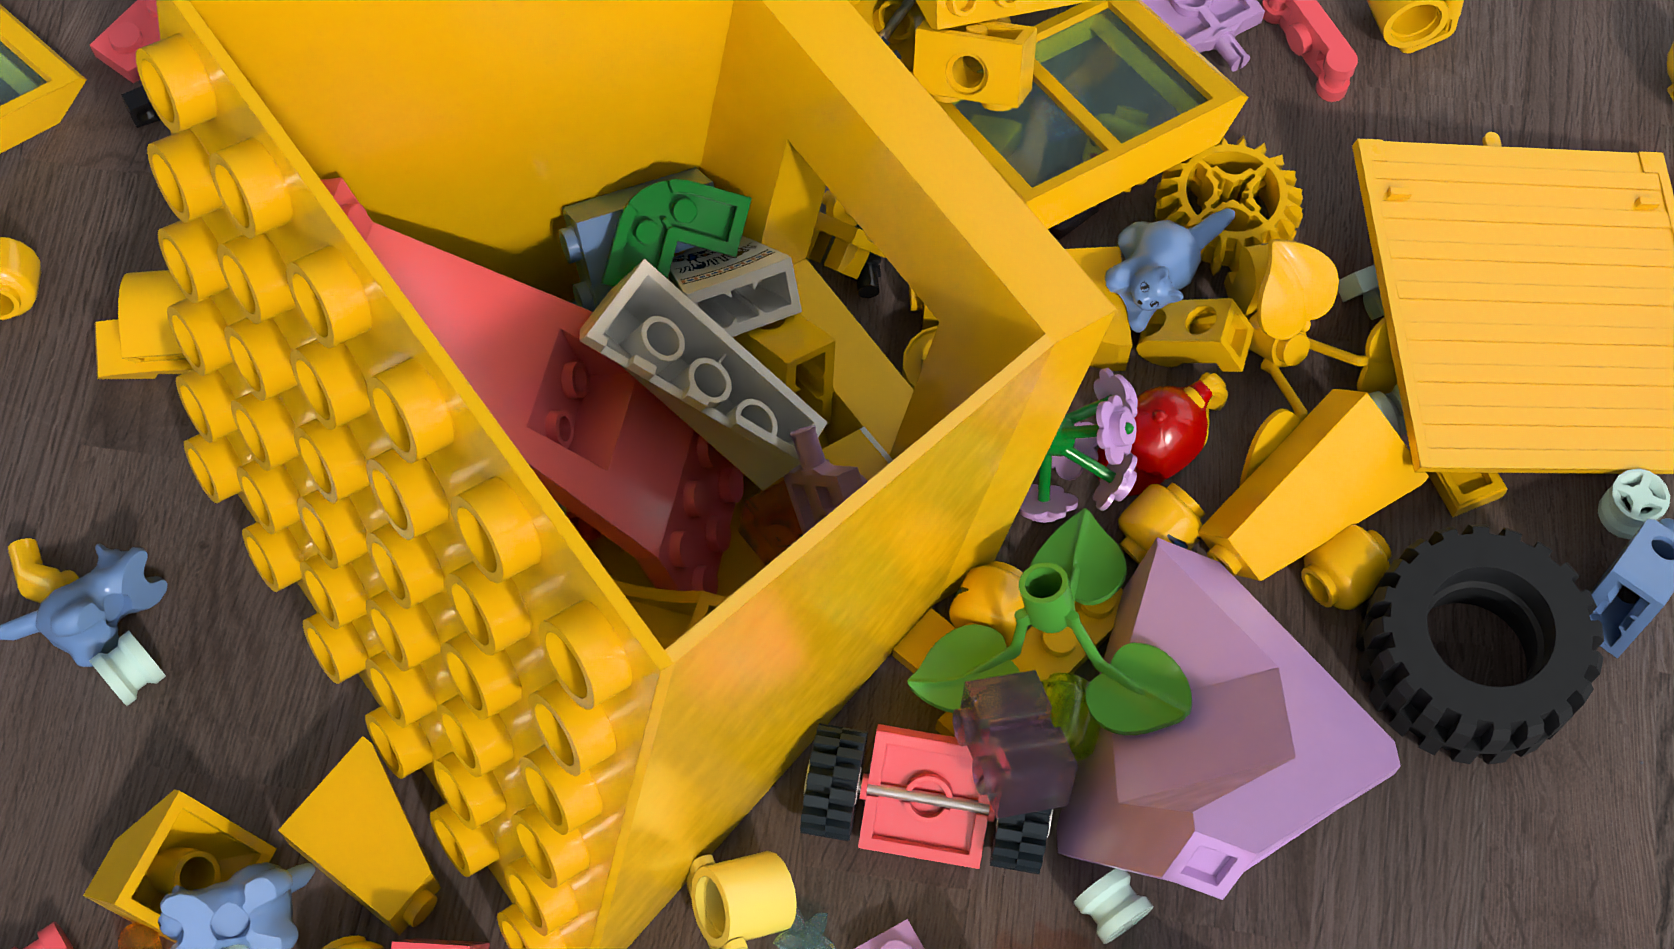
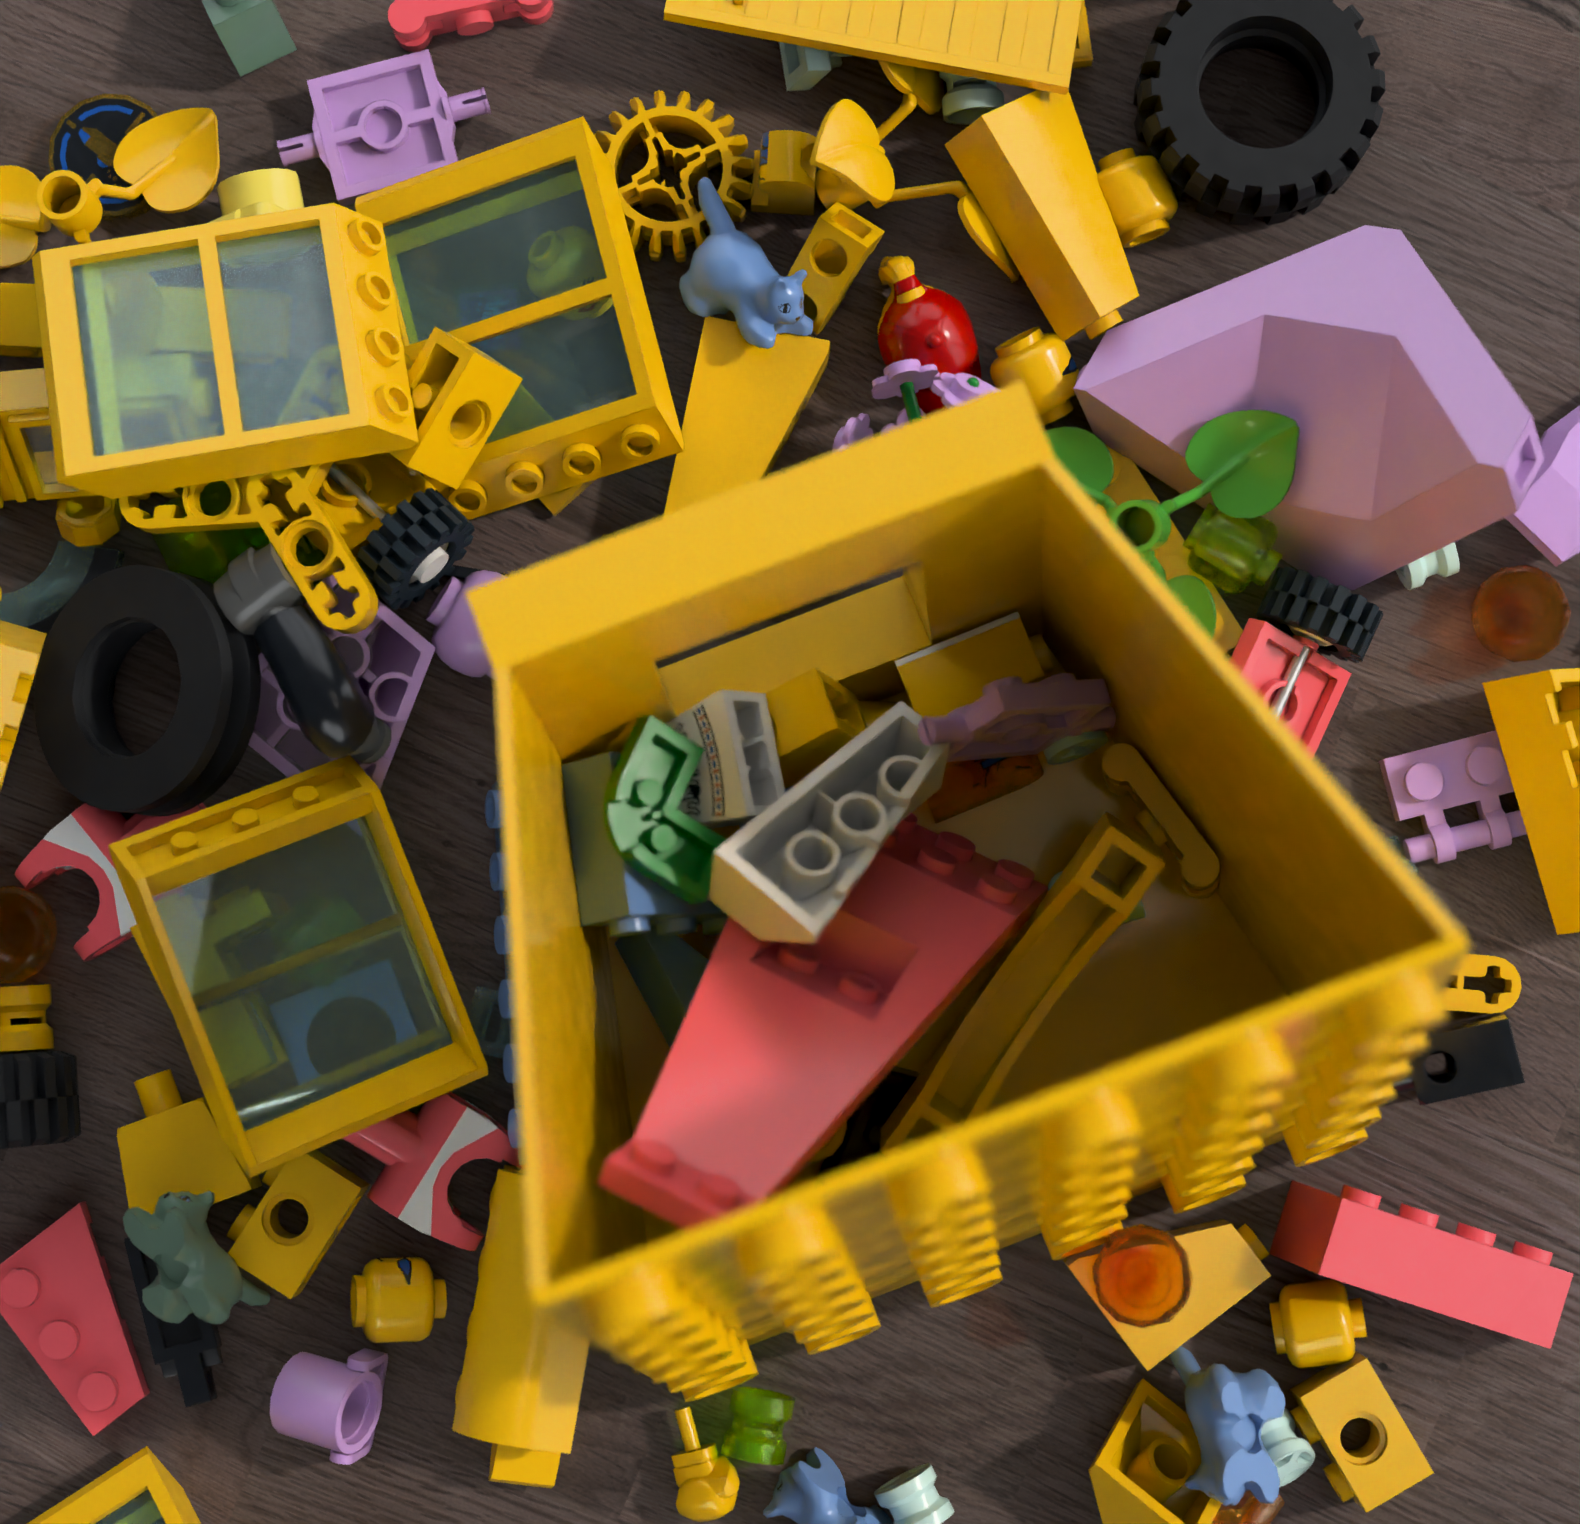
camera: 70 degrees left, 20 degrees up
(123, 495) = (705, 1478): none -> yellow piece
(130, 201) = (331, 1402): none -> lavender piece
(176, 523) = (758, 1425): none -> clear neon green wheel
(362, 790) = (1142, 1276): none -> clear orange hair
(1014, 745) = (1276, 605): brick -> none

